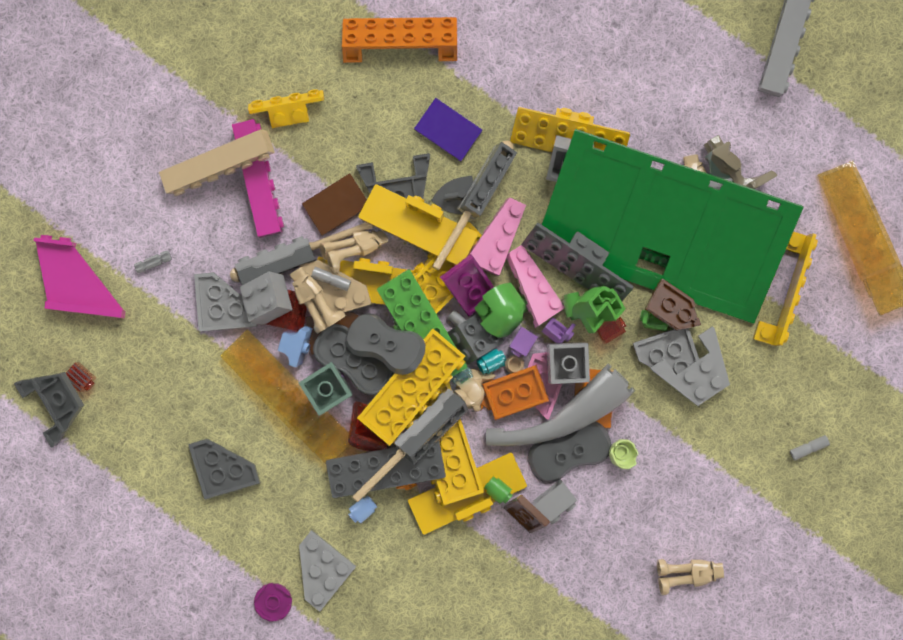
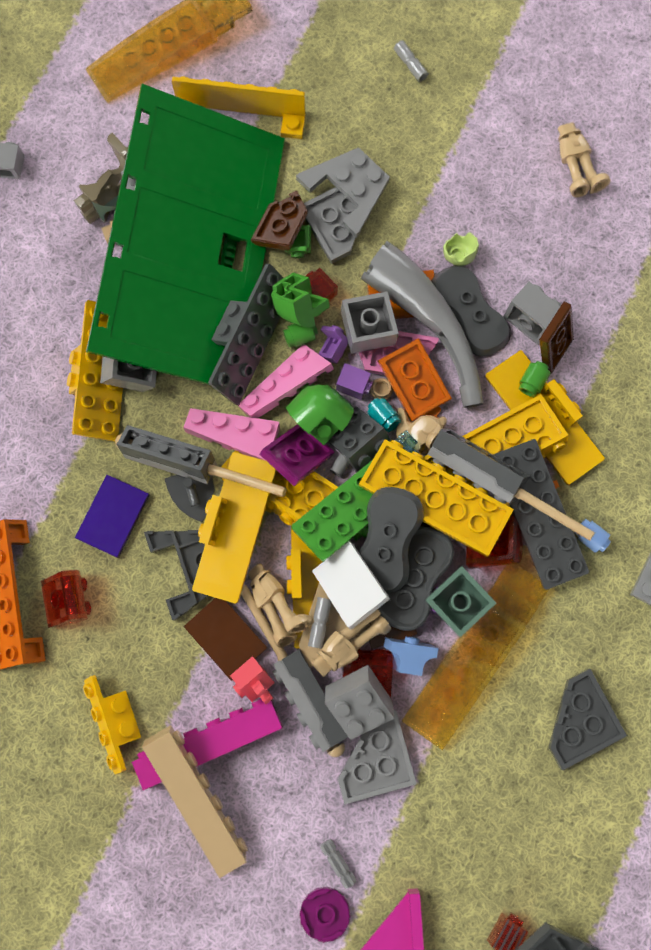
camera: 100 degrees left, 10 degrees down
(119, 245) = (325, 903): none -> magenta tile
(297, 220) = (252, 681): none -> coral brick
(354, 307) = (350, 585): none -> white tile
(387, 84) = (65, 598): none -> clear red brick

